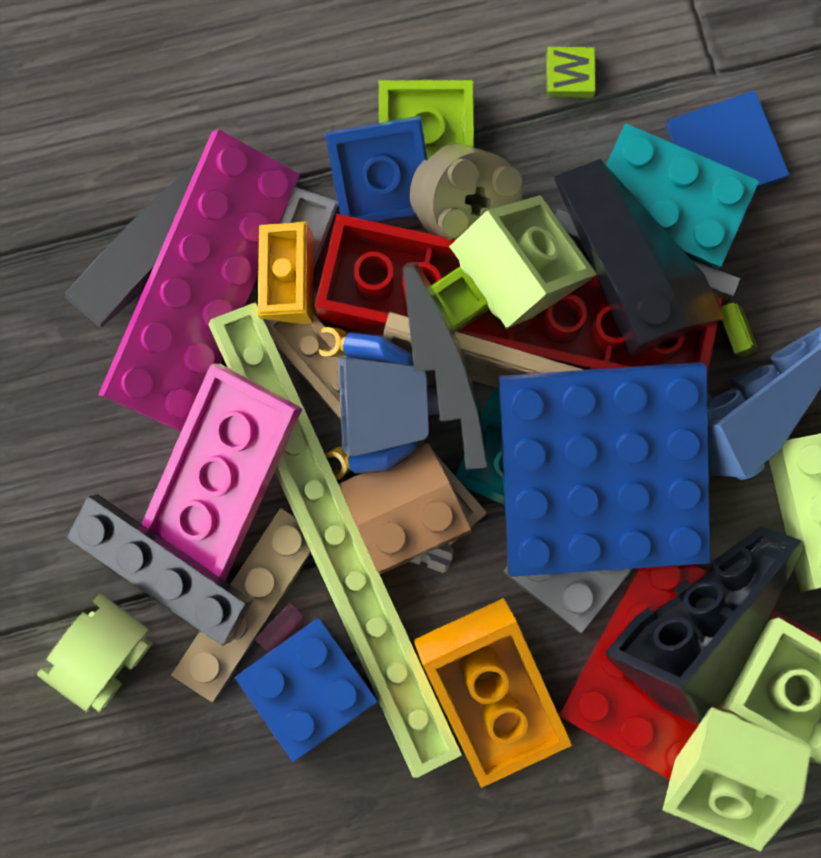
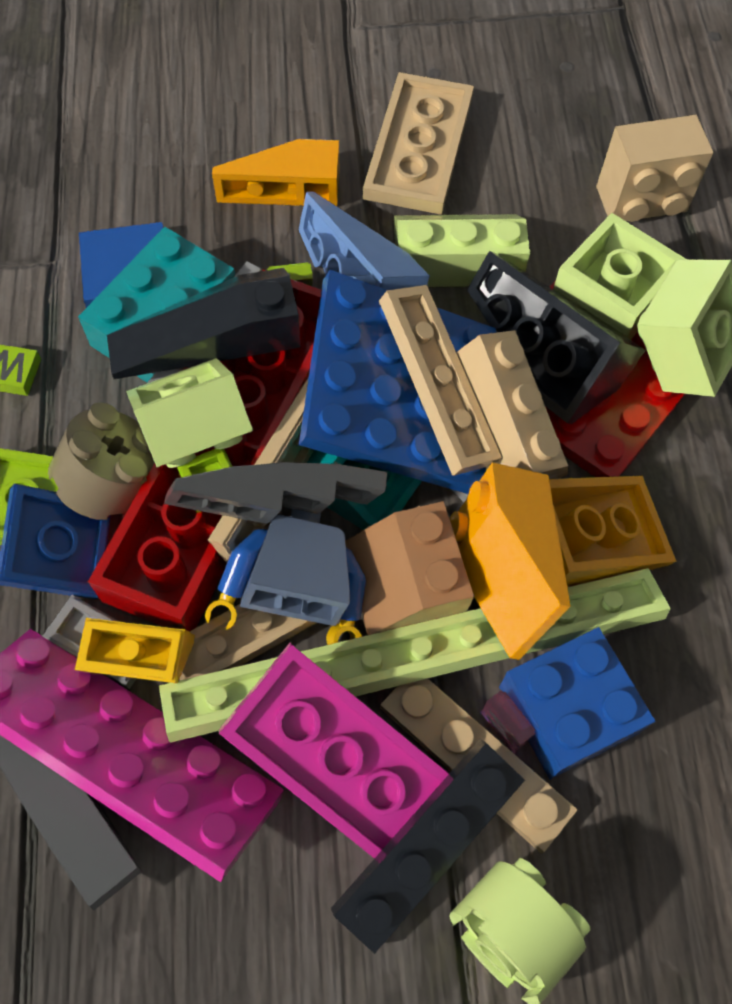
camera: 80 degrees left, 15 degrees down
(430, 602) = (513, 554): none -> light orange slope
(592, 588) = (512, 404): none -> tan slope
(604, 503) = (439, 379): none -> tan plate

